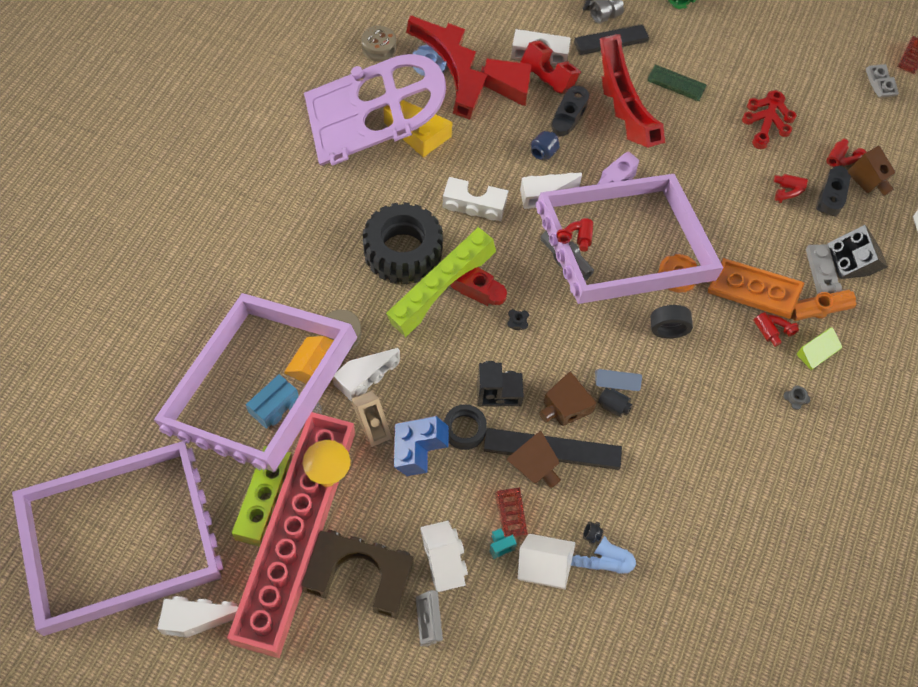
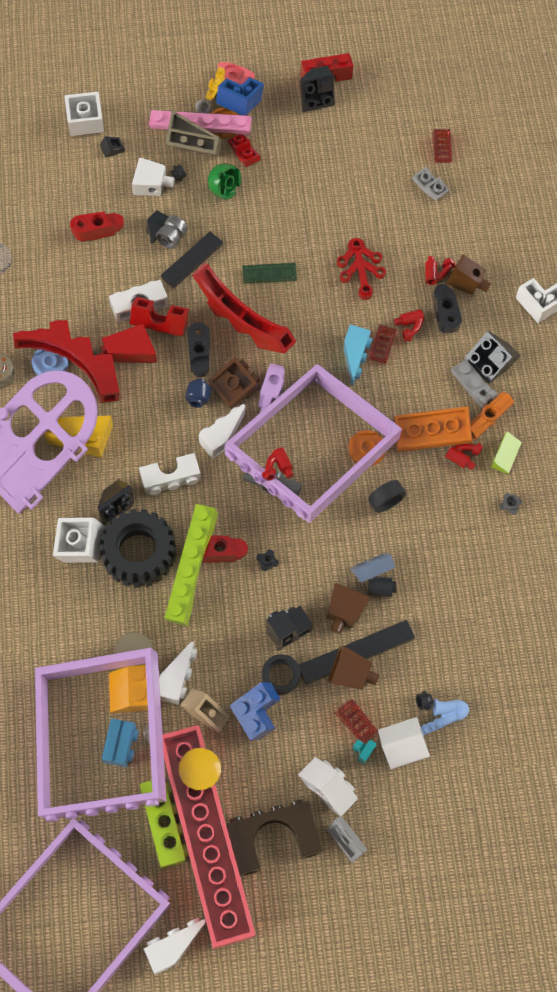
camera: 30 degrees left, 5 degrees up
(352, 207) = (78, 540): none -> white brick
(408, 190) = (114, 500): none -> black slope
(586, 153) = (234, 382): none -> reddish brown plate
(723, 178) = (354, 348): none -> medium azure slope
(761, 181) = (387, 331): none -> clear red slope

